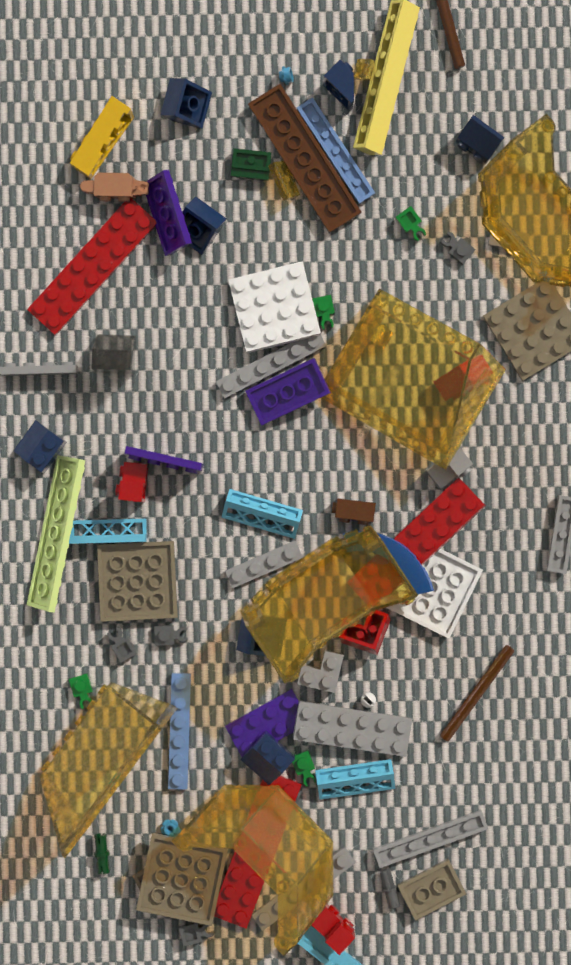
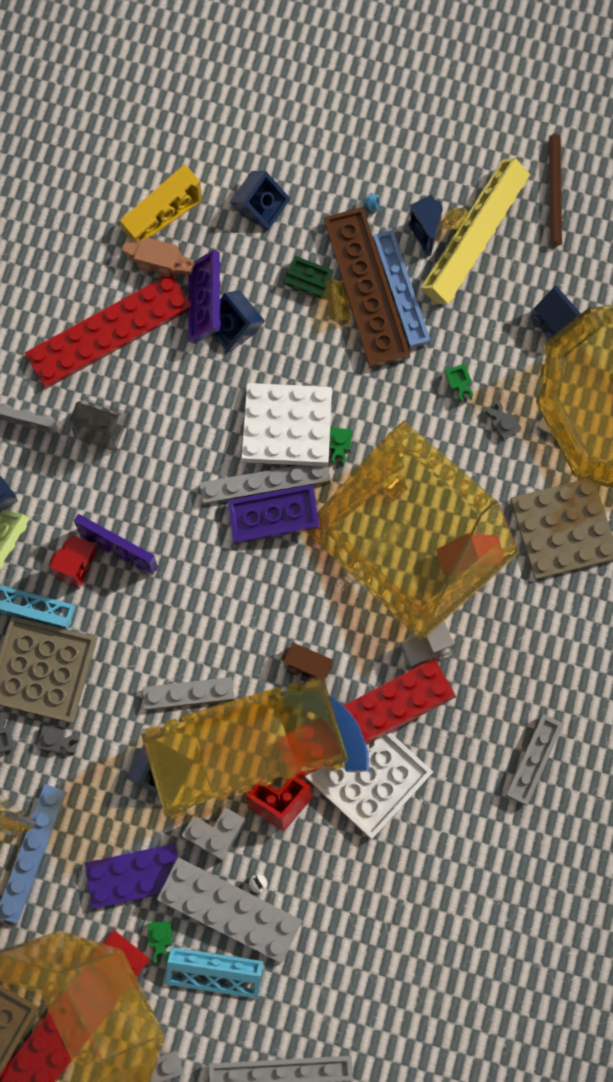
camera: 15 degrees right, 15 degrees down
(262, 510) = (222, 641): medium azure fence -> none
(268, 758) = (120, 912): dark blue slope -> none
(477, 693) = (386, 914): reddish brown axle -> none

